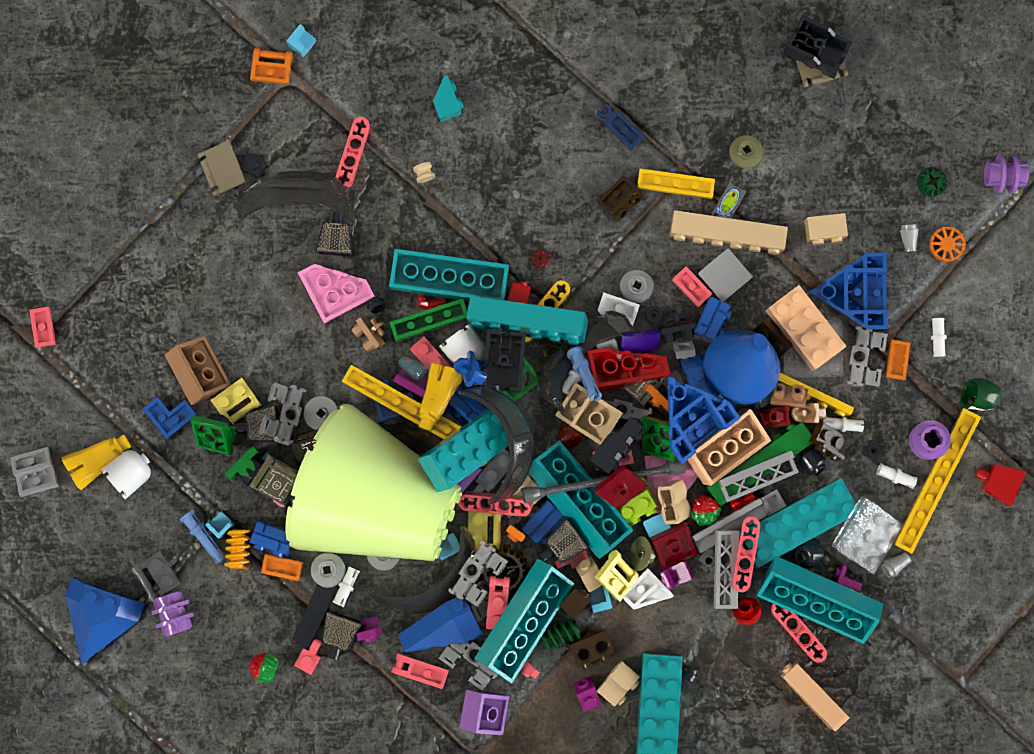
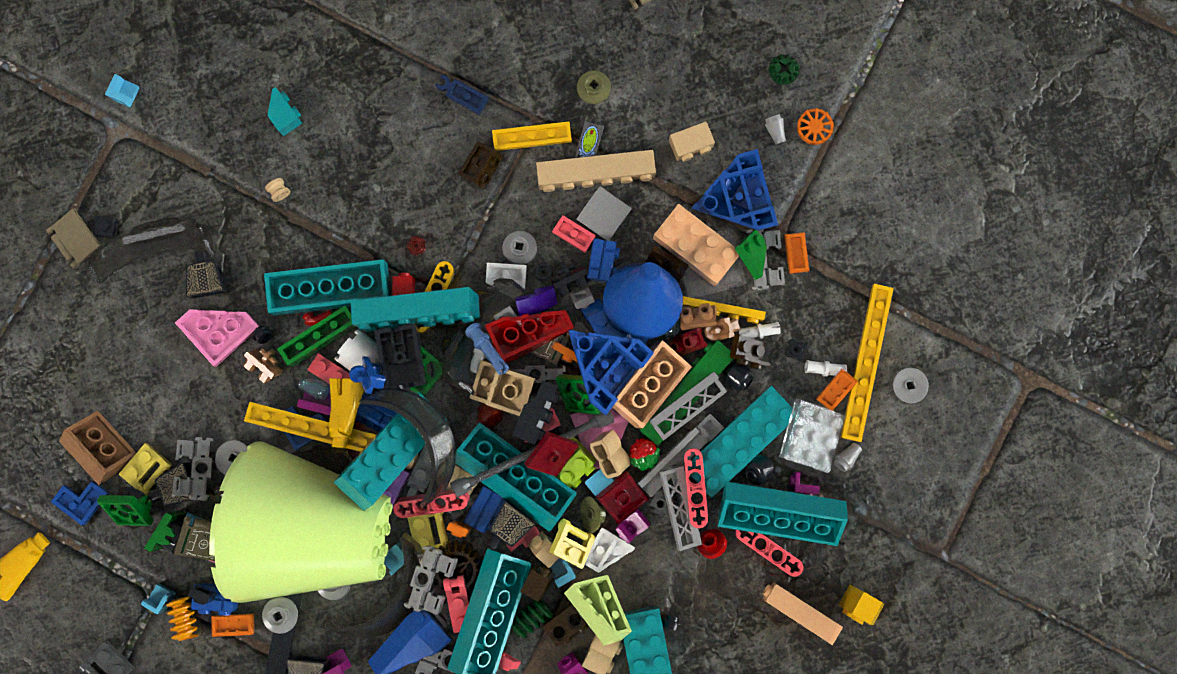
camera: 15 degrees left, 0 degrees up
(128, 472) = (48, 571): white cylinder -> none
(198, 529) = (135, 608): medium blue pin -> none
(264, 532) = (201, 595): none -> black plate
(271, 72) = (98, 129): orange plate -> none
(346, 586) = (302, 627): white pin -> none
(355, 153) = (206, 188): coral beam -> none
(628, 641) = (600, 608): none -> yellowish green wedge
(737, 503) = (674, 438): red arm -> none
(856, 349) = (752, 252): none -> green wing
(872, 704) = (860, 605): none -> yellow wedge
(902, 498) = (836, 389): none -> orange plate
(938, 337) = (830, 220): white pin -> none
(939, 434) = (856, 315): medium lavender piece -> none
(981, 512) = (918, 381): none -> light grey piece
(986, 393) = (891, 261): dark green piece -> none
(1001, 482) = (930, 348): red torso -> none
(1006, 174) = (854, 41): medium lavender piece -> none

